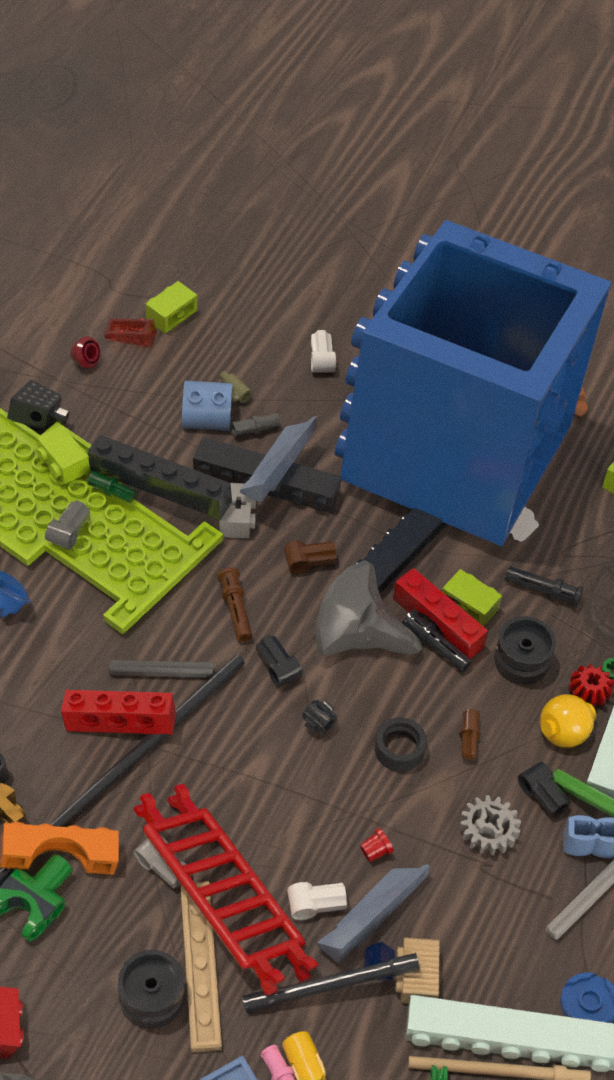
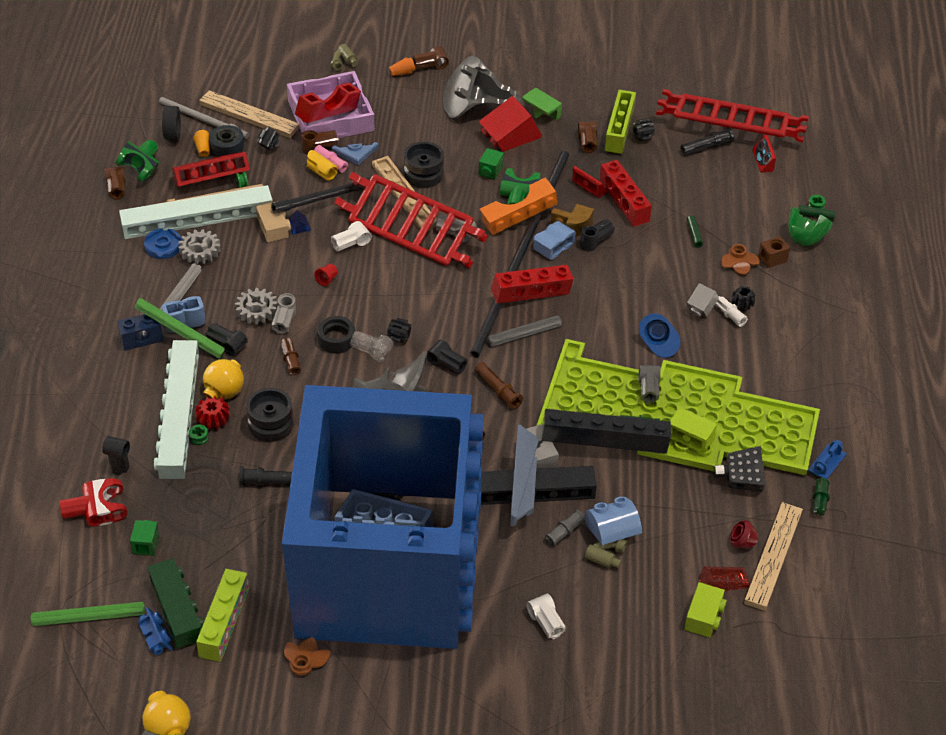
camera: 160 degrees right, 5 degrees down
(42, 784) = (554, 240): none -> medium blue brick
(47, 961) = (491, 163): none -> green brick
(65, 335) = (773, 556): none -> tan tile
(358, 707) = (376, 347): none -> clear piece
(372, 911) = (314, 239): sand blue wedge -> none
(456, 798) = (284, 314): none -> light grey piece
(539, 972) = (199, 246): none -> light grey gear

